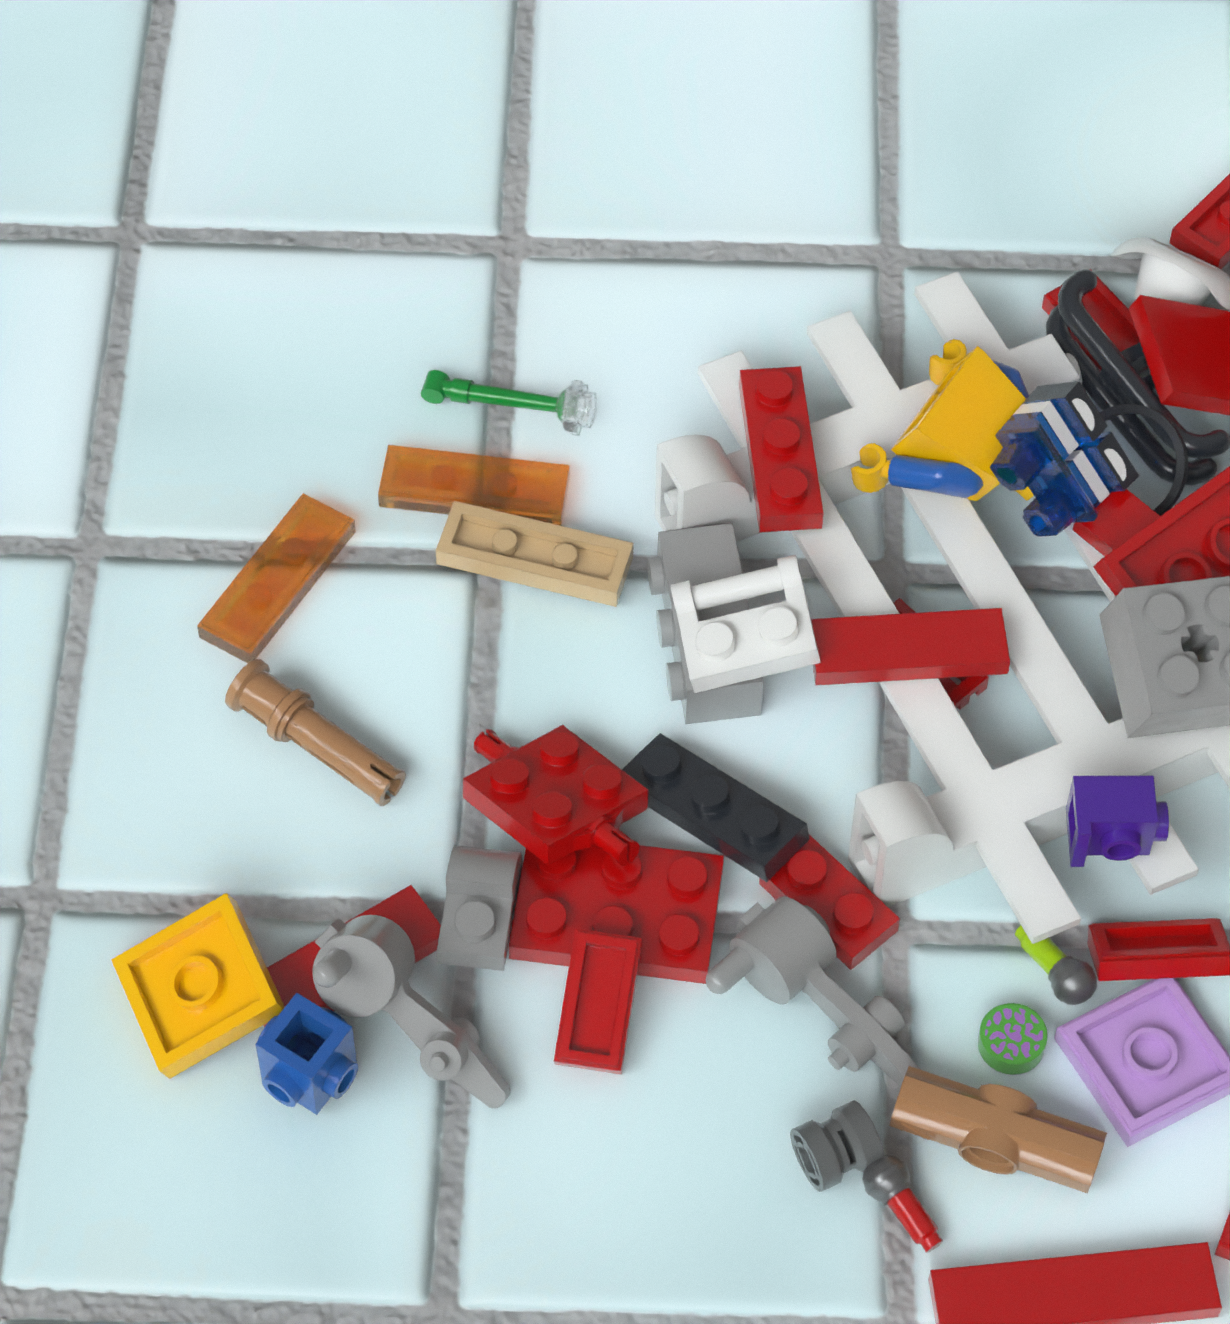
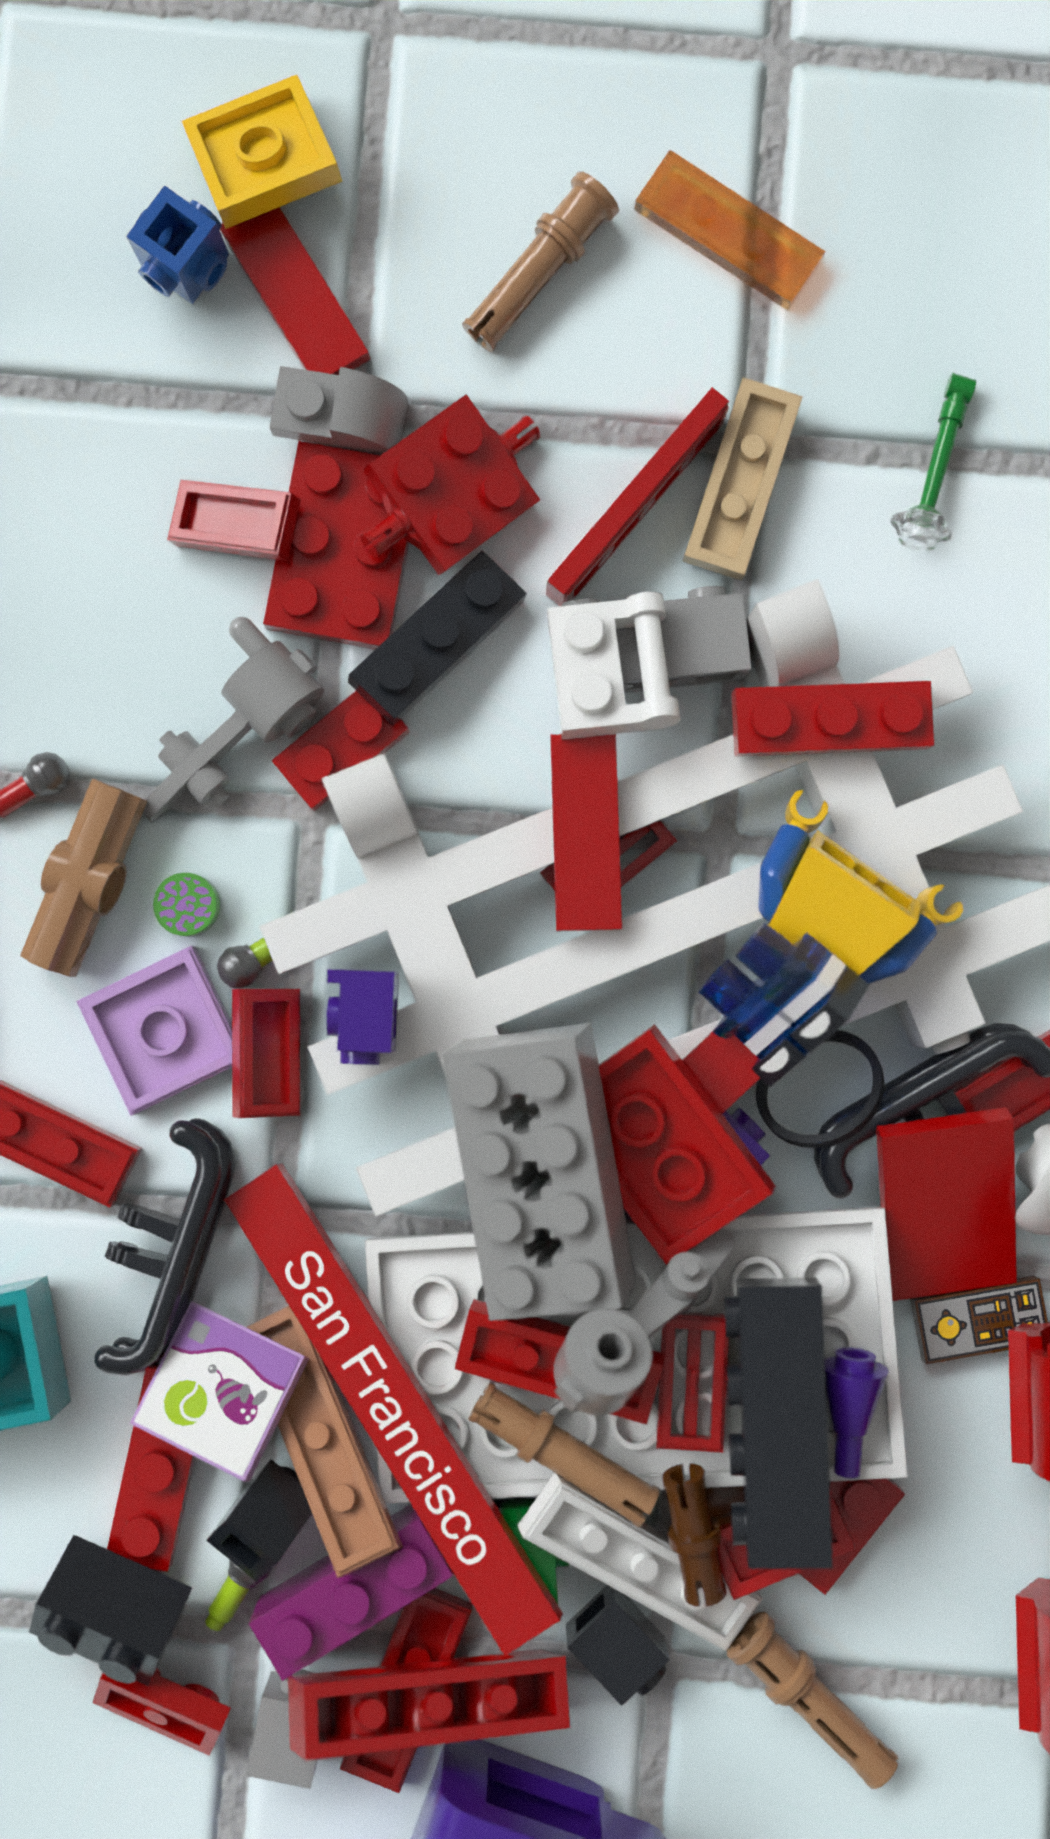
camera: 90 degrees right, 30 degrees up
(368, 970) = (249, 294): light grey piece -> none
(435, 479) = (834, 425): clear orange tile -> none
(562, 638) = (638, 498): none -> red tile
(836, 1145) = (74, 728): dark grey wheel -> none

